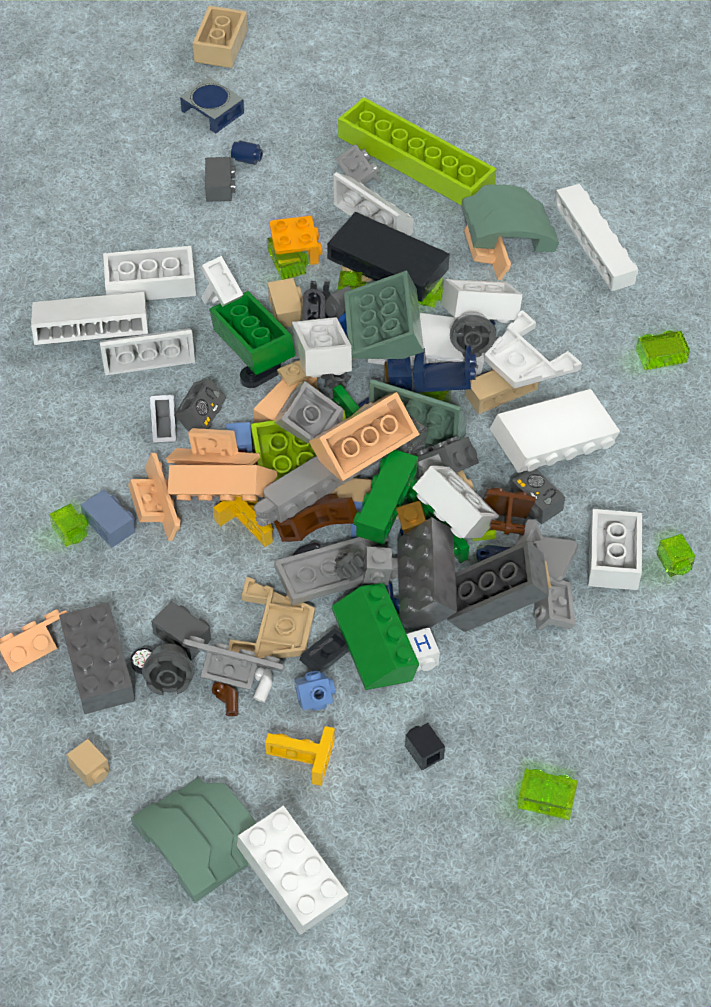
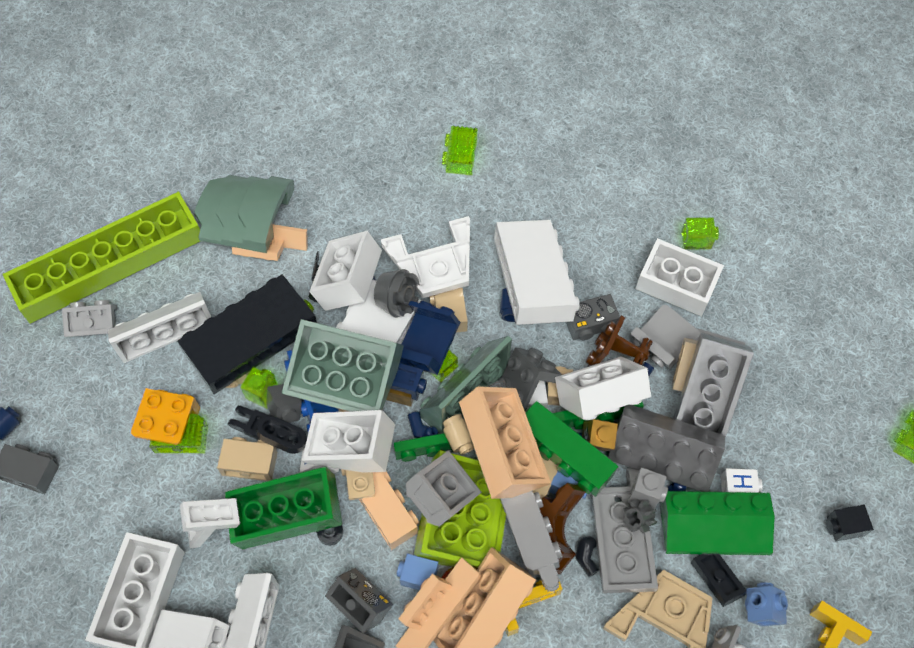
camera: 70 degrees left, 10 degrees up
(596, 237) = (298, 147): white brick -> none

